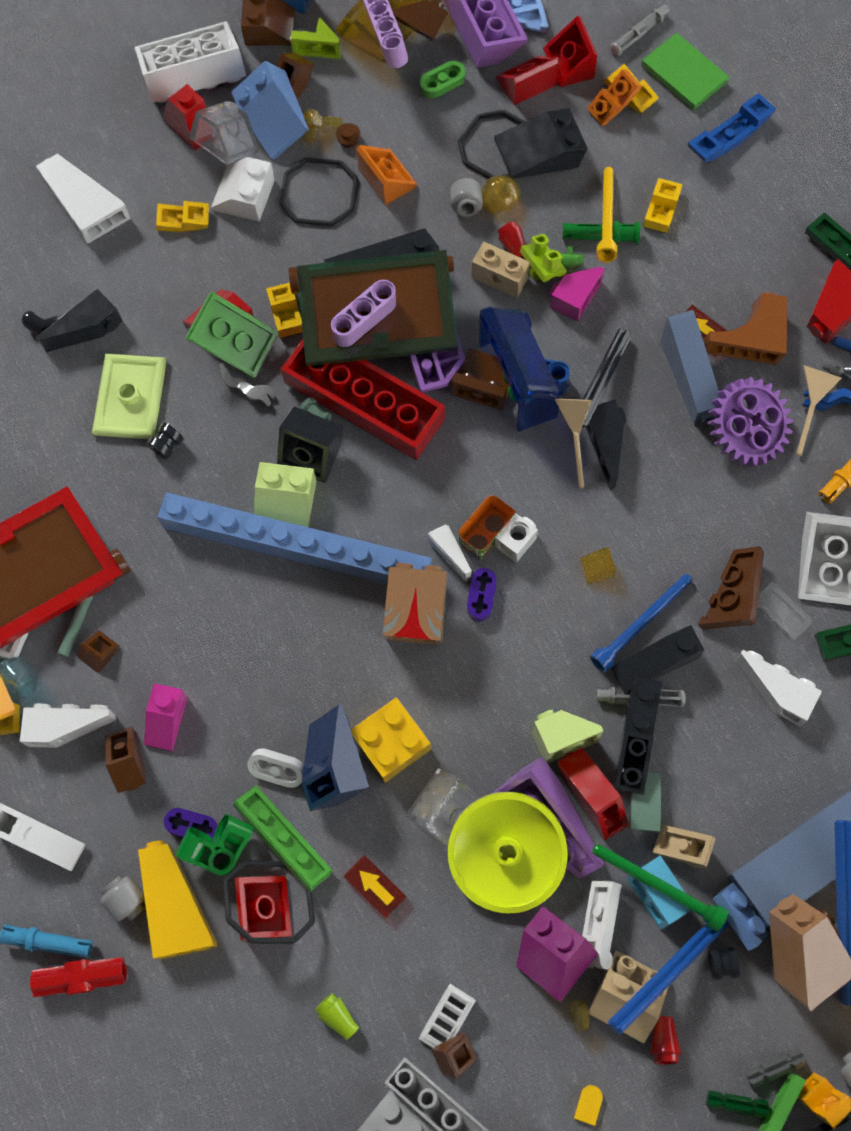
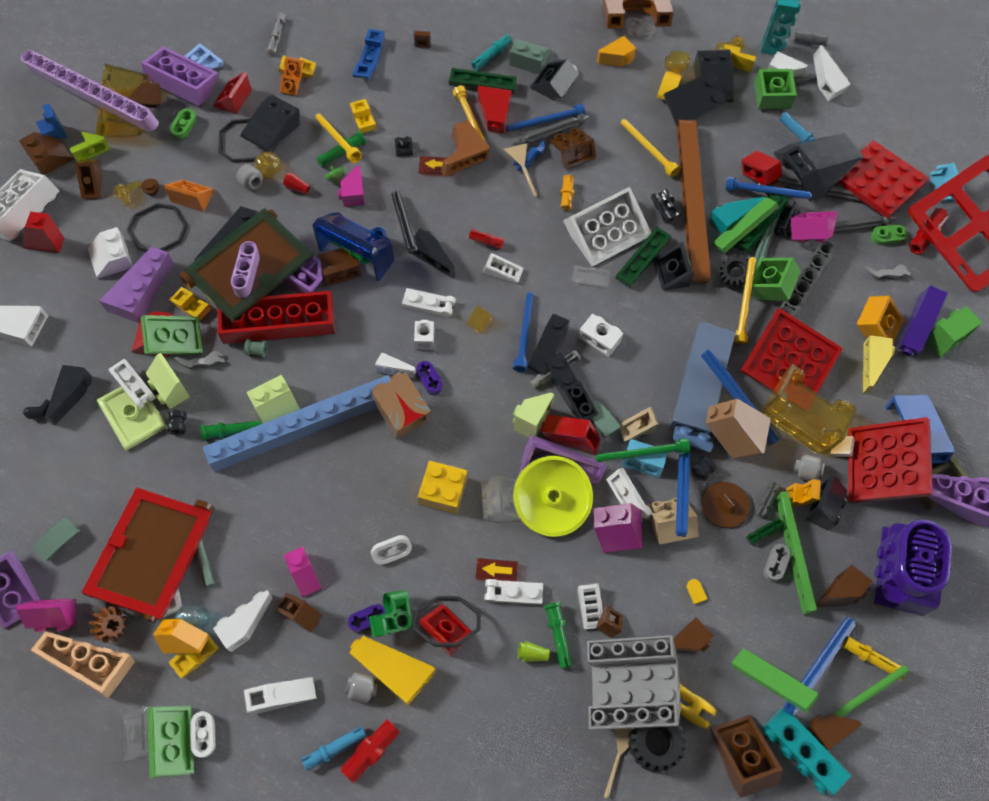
camera: 45 degrees left, 5 degrees down
(97, 651) = (230, 567): reddish brown slope -> none
(151, 361) = (131, 383): none -> white plate
(183, 218) = (86, 291): yellow slope -> none
(188, 387) = (165, 382): none -> yellowish green slope
(207, 487) = (221, 431): none -> green pin
(224, 132) = (73, 228): clear slope -> none
(246, 249) = (139, 286): none -> medium lavender wedge
(271, 108) = (92, 198): medium blue slope -> none
(282, 838) = (425, 584): bright green tile -> none
(309, 442) = (266, 362): black slope -> none
(332, 762) = (420, 520): dark blue slope -> none
(374, 929) = (514, 592): none -> white plate
(390, 1006) = (557, 625): none -> green pin
(490, 506) = (400, 326): orange piece -> none
(500, 269) = (301, 202): tan brick -> none
(544, 262) = (322, 183): lime hips -> none
(554, 499) = (428, 302): none -> white plate
(574, 53) = (252, 63): red slope -> none
(575, 414) = (407, 247): tan piece -> none
(579, 1015) = (656, 550): clear yellow tile -> none
(665, 1042) = (708, 530): red cone -> none
(682, 278) = (403, 146): none -> black tile
(685, 71) = (318, 41): bright green tile -> none
(687, 517) = (495, 272): none -> white slope
(689, 469) = (486, 239): none -> red axle
(690, 365) = (446, 186): sand blue slope -> none
(716, 1030) = (725, 504): none -> reddish brown shield
(732, 712) = (604, 344): none -> white brick
(739, 592) = (561, 281): reddish brown wing -> none
(750, 422) = (499, 194): medium lavender gear -> none
(784, 693) = (625, 315): white slope -> none
(807, 256) = (461, 94): none -> yellow piece
(817, 149) = (422, 39): none -> reddish brown tile

